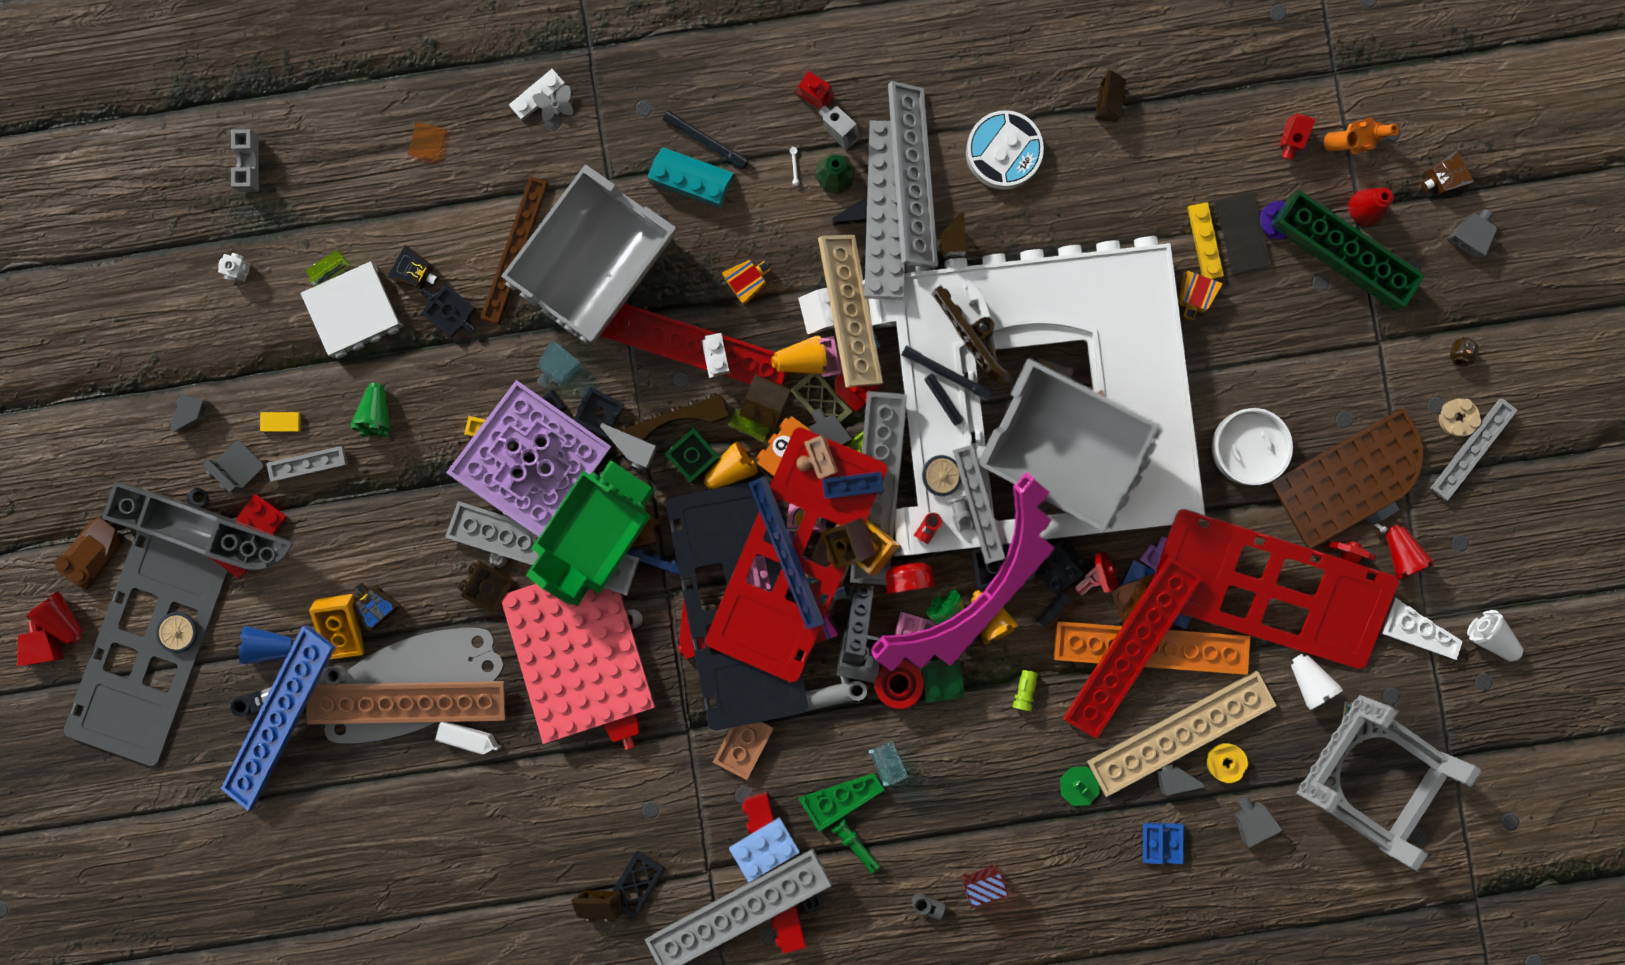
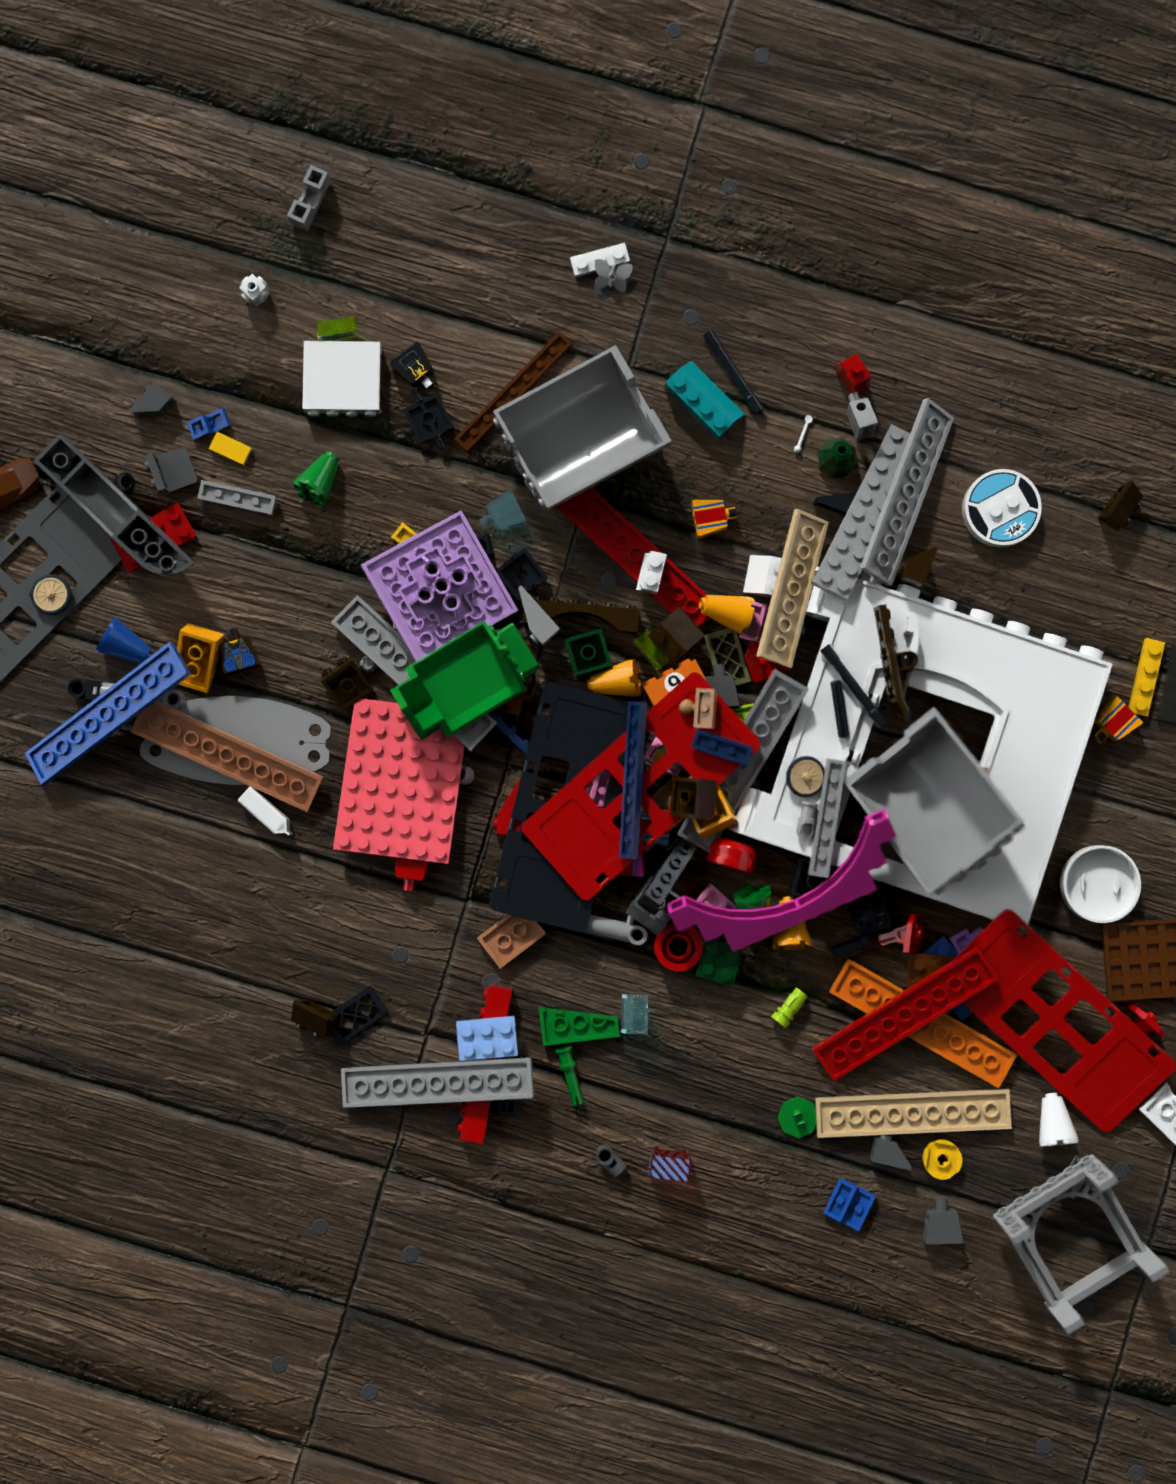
camera: 25 degrees right, 0 degrees up
(250, 409) = (209, 424): none -> blue slope
(427, 141) = (480, 256): clear orange piece -> none
(924, 536) = (763, 823): red piece -> none

